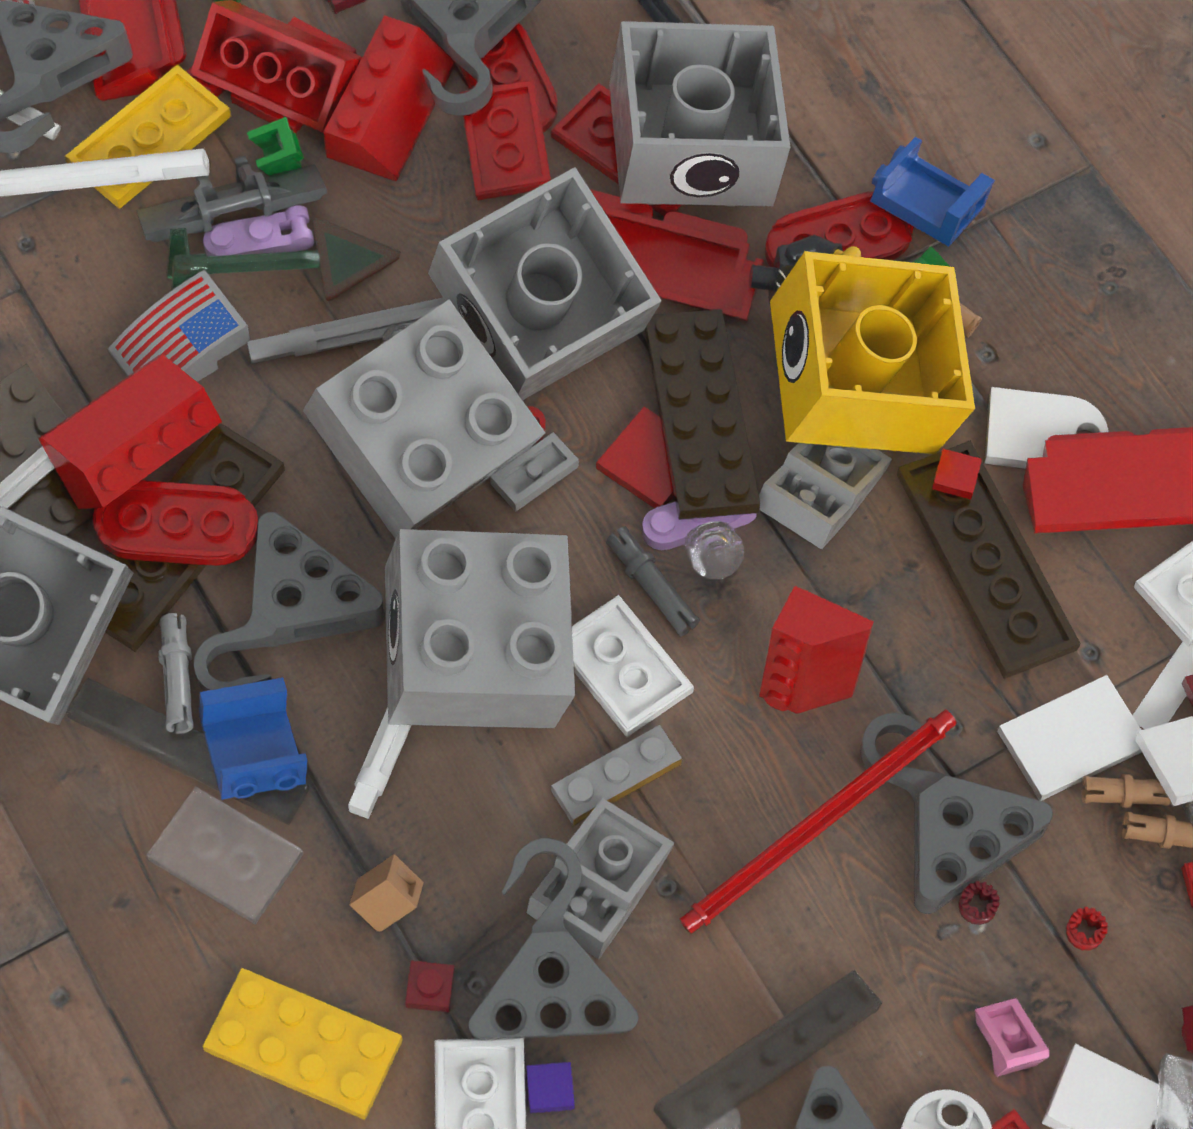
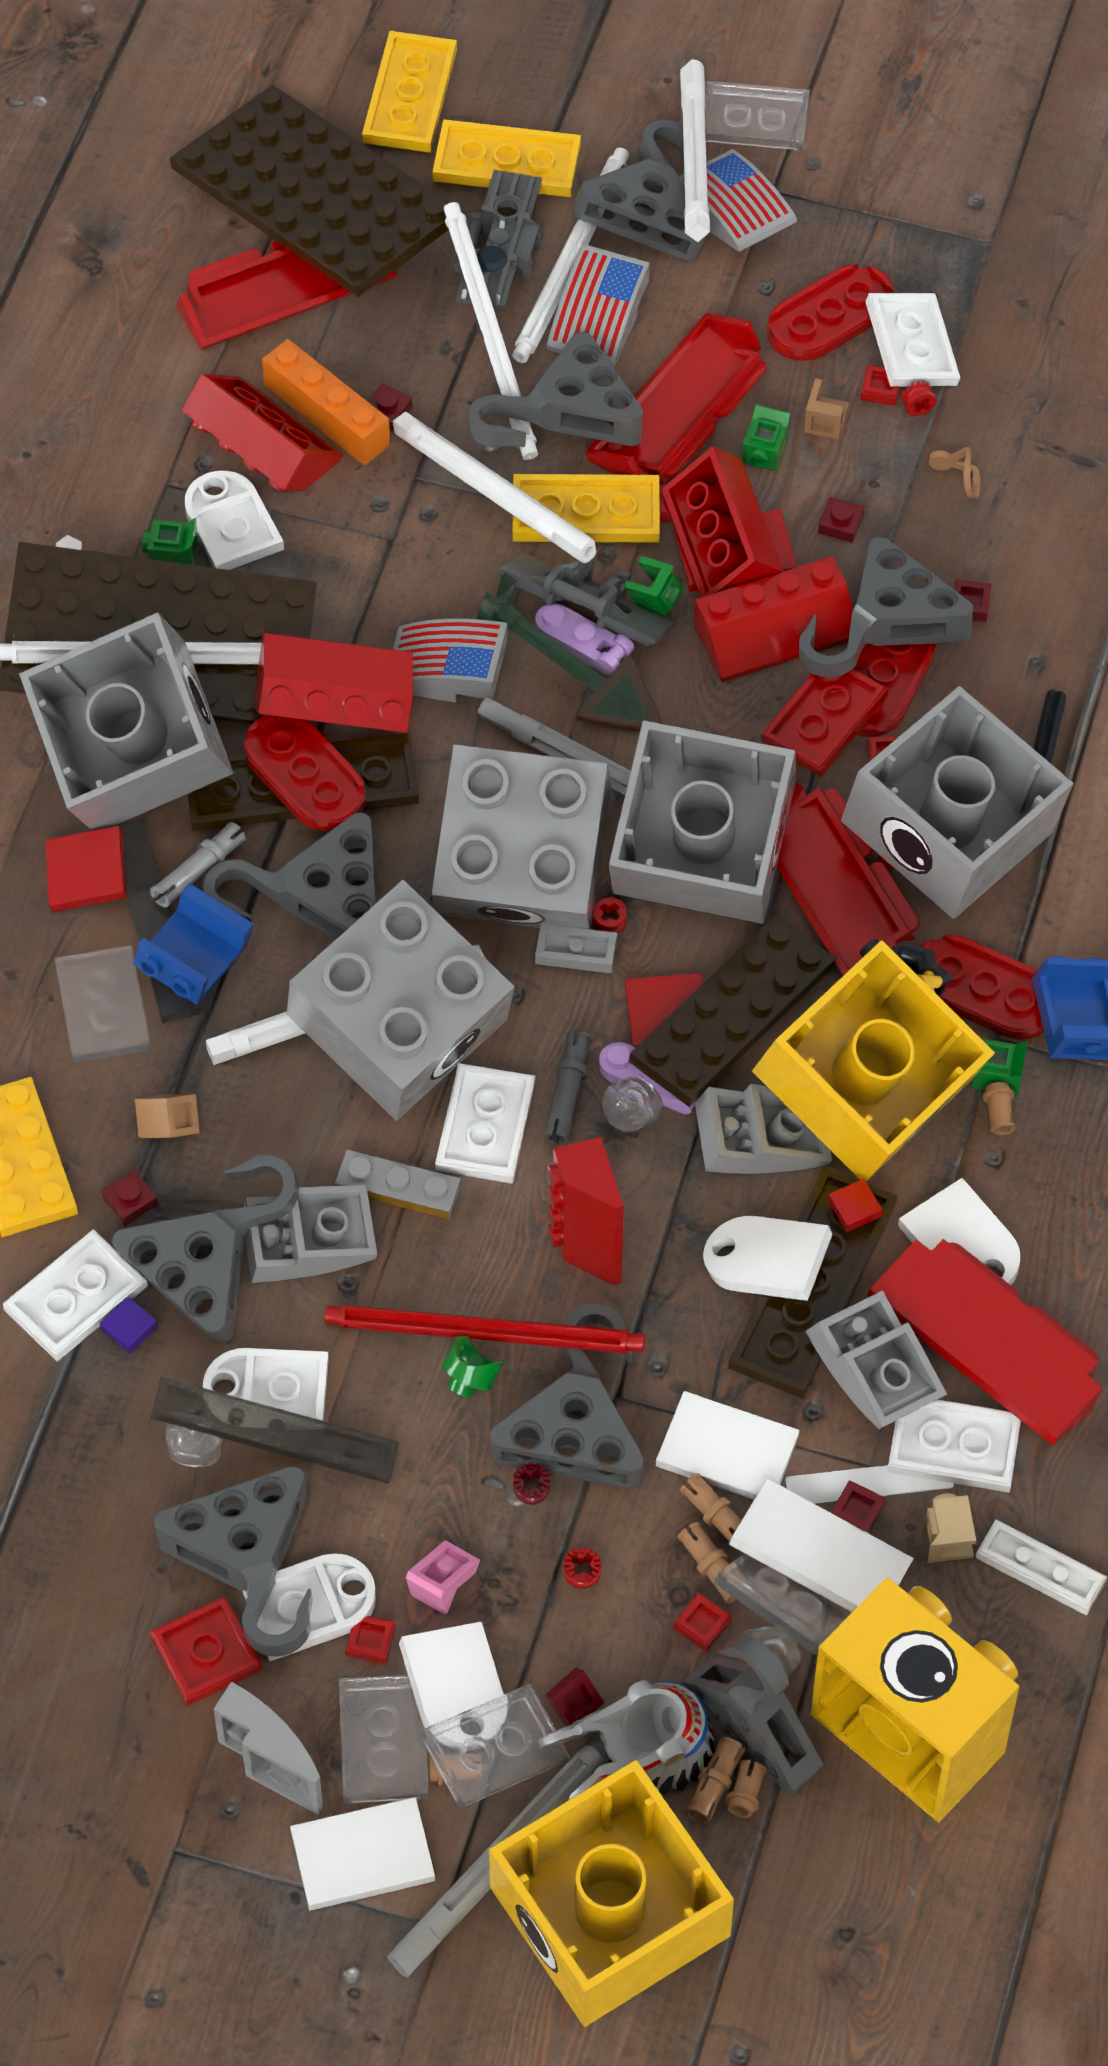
camera: 50 degrees right, 5 degrees down
(88, 760) = (86, 869): none -> red tile
(710, 1021) = (275, 1378): none -> white tile
(843, 861) = (469, 1368): none -> green piece
(944, 568) = (768, 1256): none -> white tile
(1102, 572) = (876, 1360): none -> light grey slope

